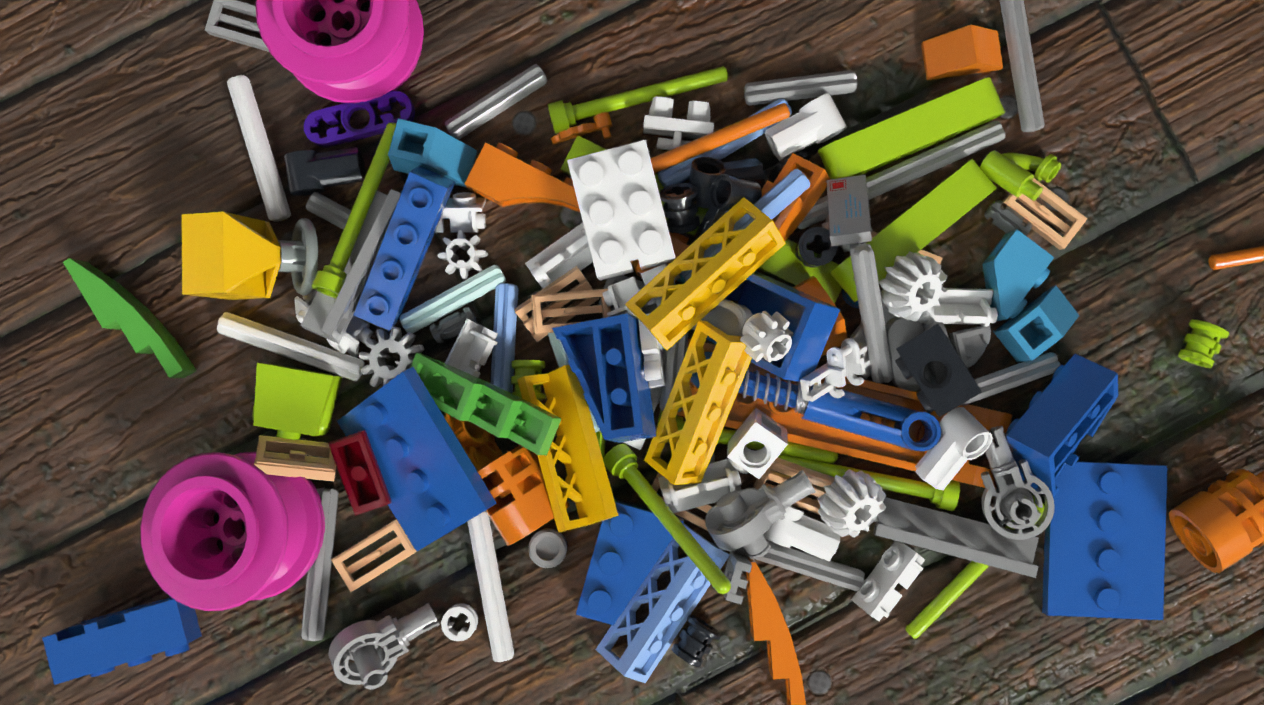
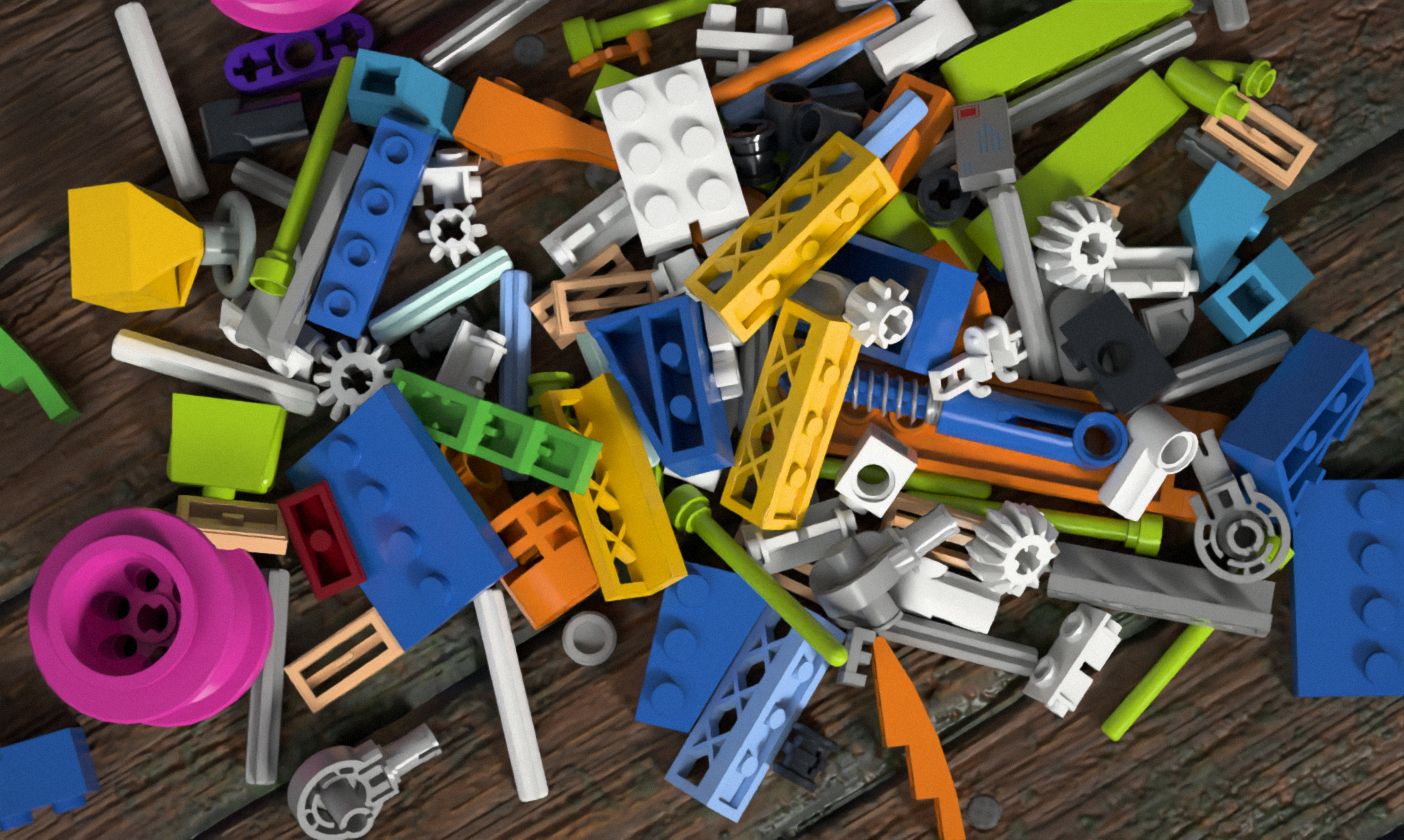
camera: 10 degrees left, 5 degrees down
(465, 632) = (464, 733): white bush -> none

